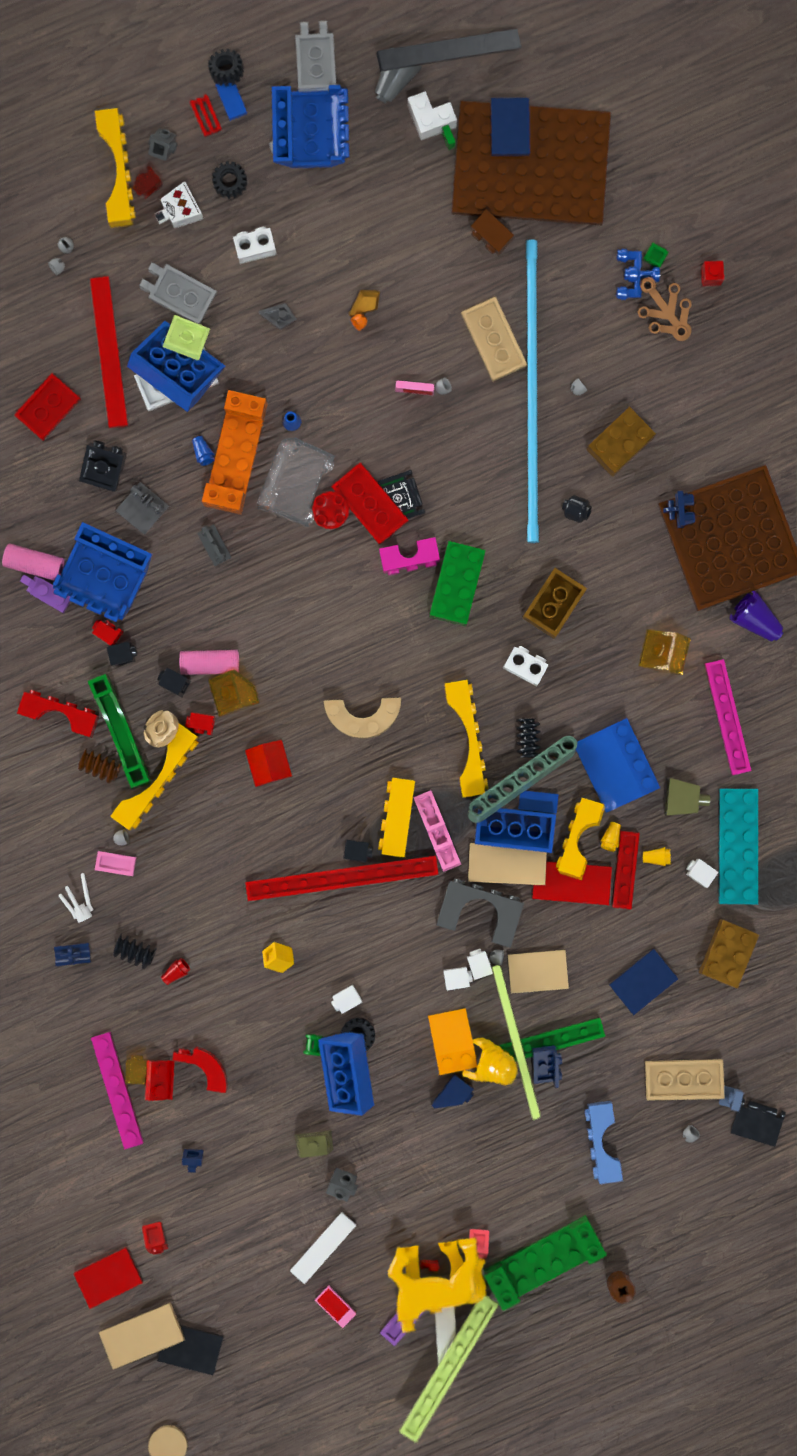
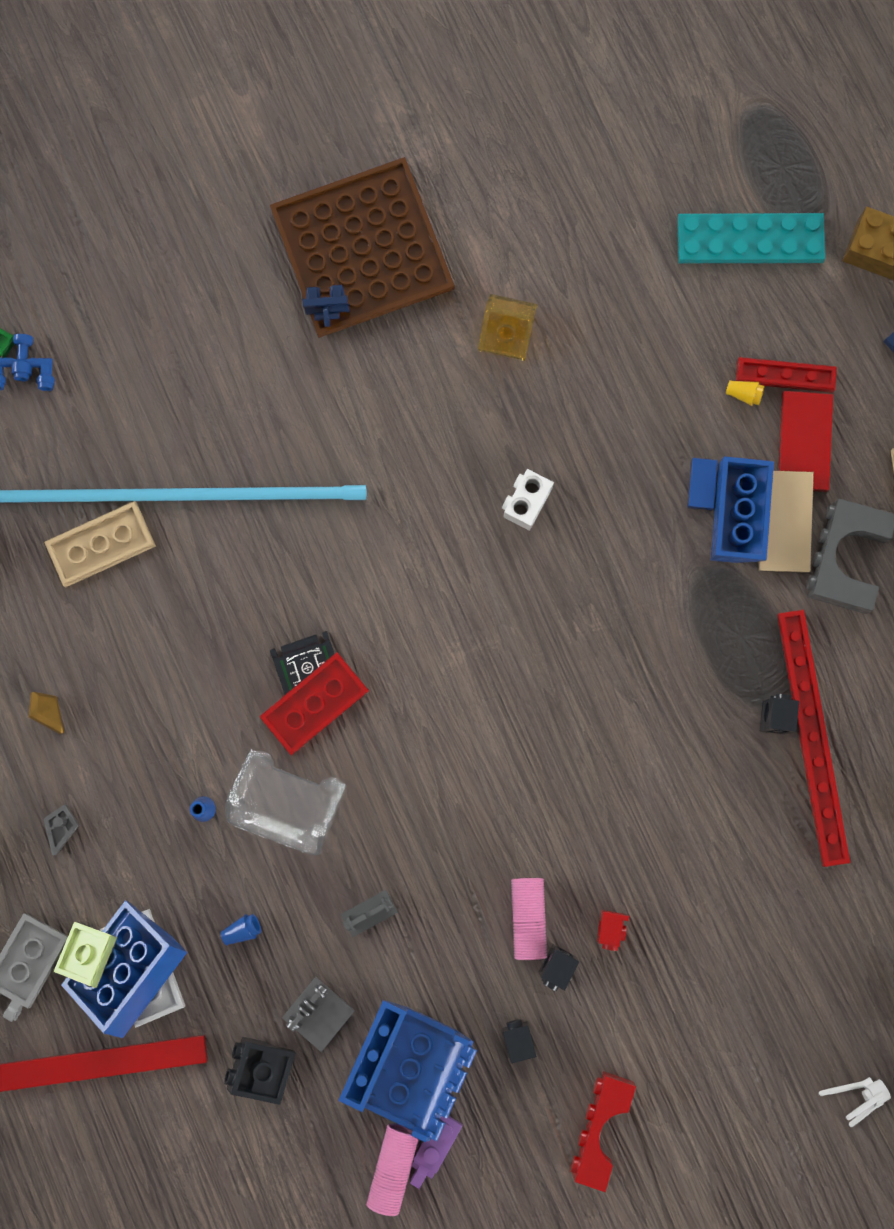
camera: 85 degrees left, 5 degrees down
(47, 407) = (176, 1150): red tile -> none
(99, 766) = (674, 1071): reddish brown piece -> none
(107, 632) = (489, 1062): red brick -> none
(115, 863) = (804, 1046): bright pink tile -> none
(120, 731) = (647, 1032): green arch -> none
(121, 837) = (770, 1038): light grey hinge -> none
(130, 810) = (732, 1026): yellow arch -> none
(161, 728) = (621, 984): tan tile -> none
(232, 692) = (570, 886): clear yellow slope -> none
(235, 452) = (243, 885): orange plate -> none
(268, 763) = (662, 836): red slope -> none
(330, 510) = (322, 755): red dish -> none
(359, 321) = (71, 719): orange hinge -> none
(363, 727) = (612, 705): tan brick -> none
(398, 817) = (731, 663): yellow brick -> none
(414, 387) = (161, 645): bright pink tile -> none
(426, 555) = (390, 672): dark pink arch -> none
(437, 831) = (745, 612): bright pink slope -> none
(443, 386) = (160, 608): light grey hinge -> none
(457, 583) = (421, 587): green brick -> none
(459, 699) = (674, 567): yellow arch -> none
(517, 786) = (686, 507): sand green beam -> none
(528, 738) = (622, 494): black piece -> none
(554, 603) = (446, 462): pearl gold brick -> none
(577, 509) = (323, 436): black head -> none
(578, 388) = (166, 436): light grey hinge -> none
(588, 815) = (782, 436): yellow arch -> none
(616, 765) = (653, 384): blue slope -> none
(621, 441) = (237, 381): pearl gold brick -> none
(658, 856) = (768, 333): yellow cone -> none
(667, 311) = (70, 324): medium nougat plant -> none
(684, 798) = (694, 303): olive torso -> none
(701, 872) = (787, 280): white brick -> none
(712, 273) = (24, 269): red brick -> none
(727, 717) = (589, 250): dark pink plate -> none
(756, 617) = (461, 215): dark purple cone -> none

